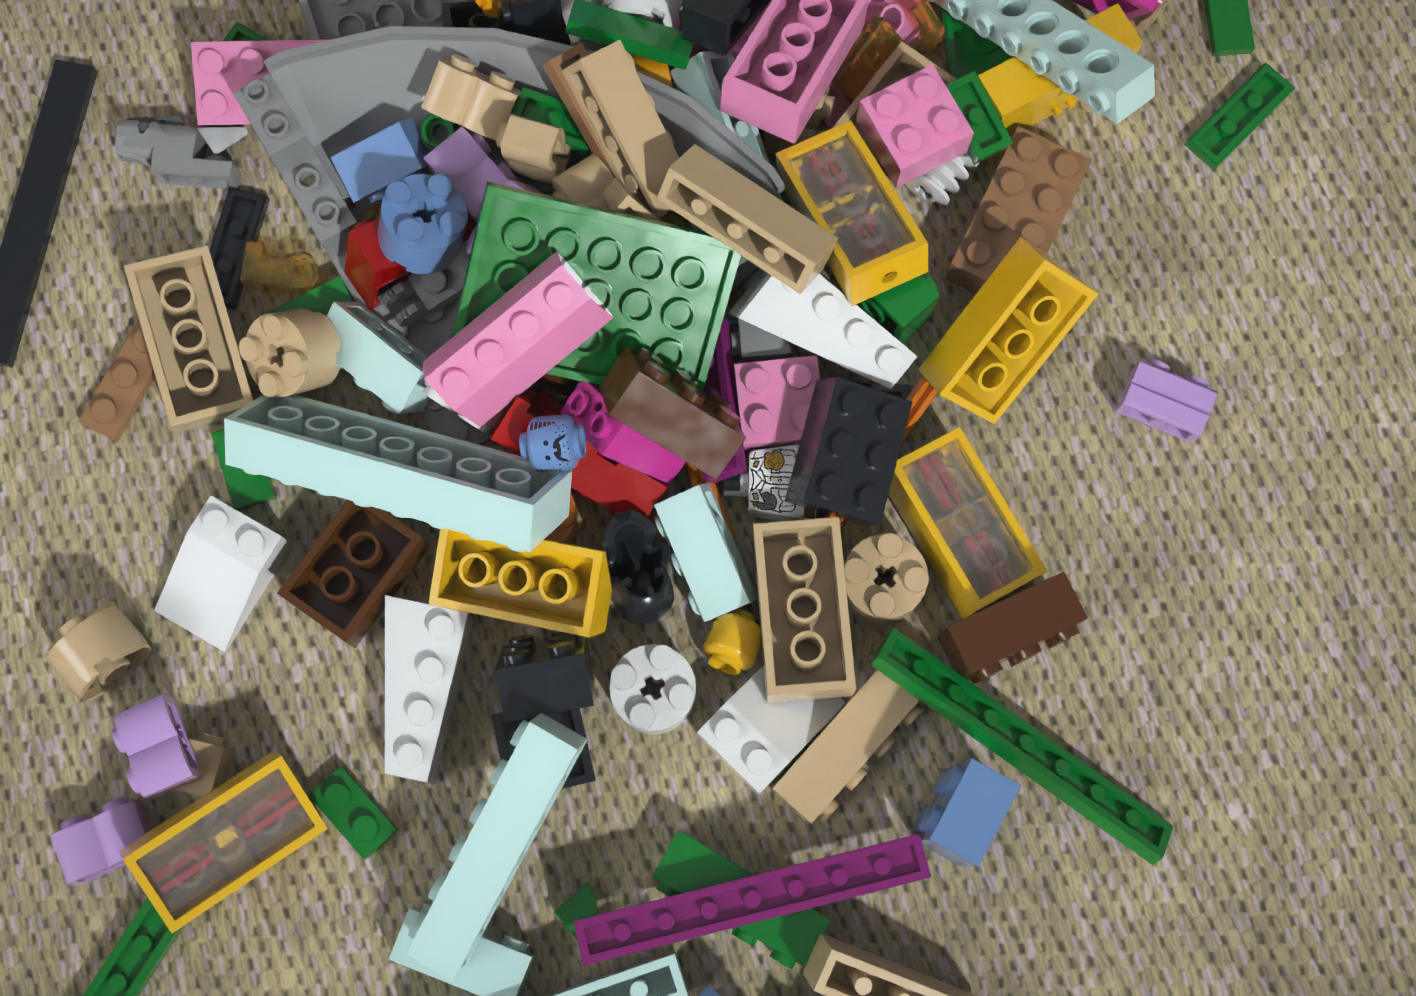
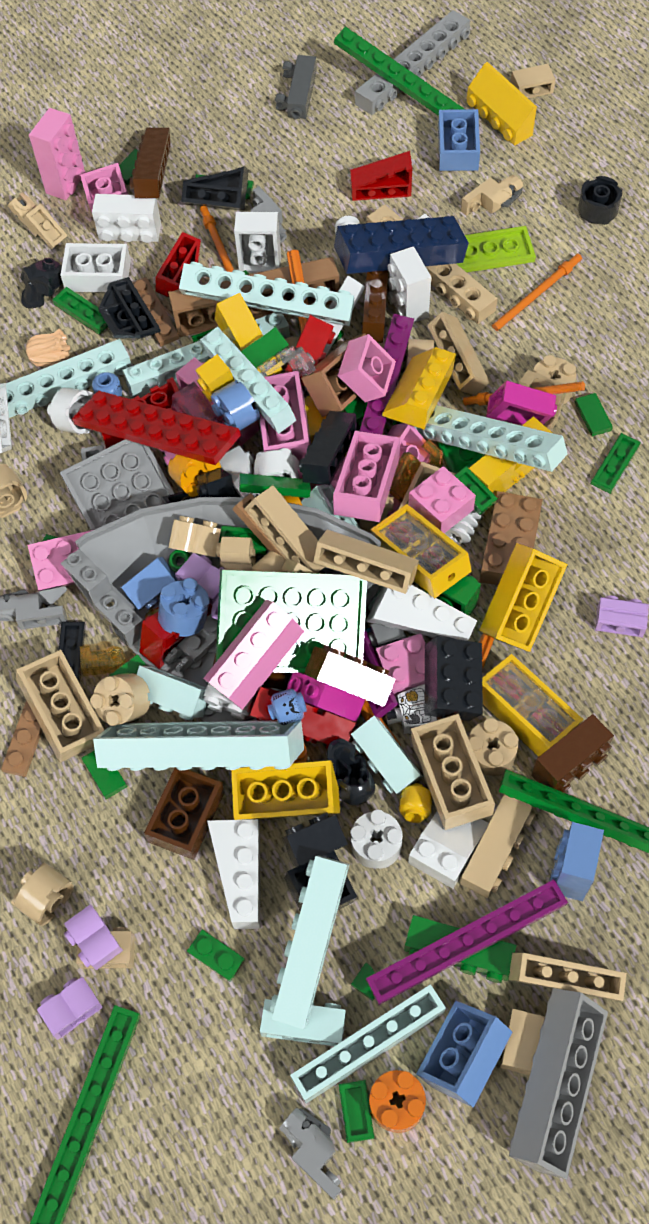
camera: 10 degrees left, 15 degrees down
(220, 573) = (105, 834): white slope -> none
(223, 840) = (144, 984): clear brick -> none

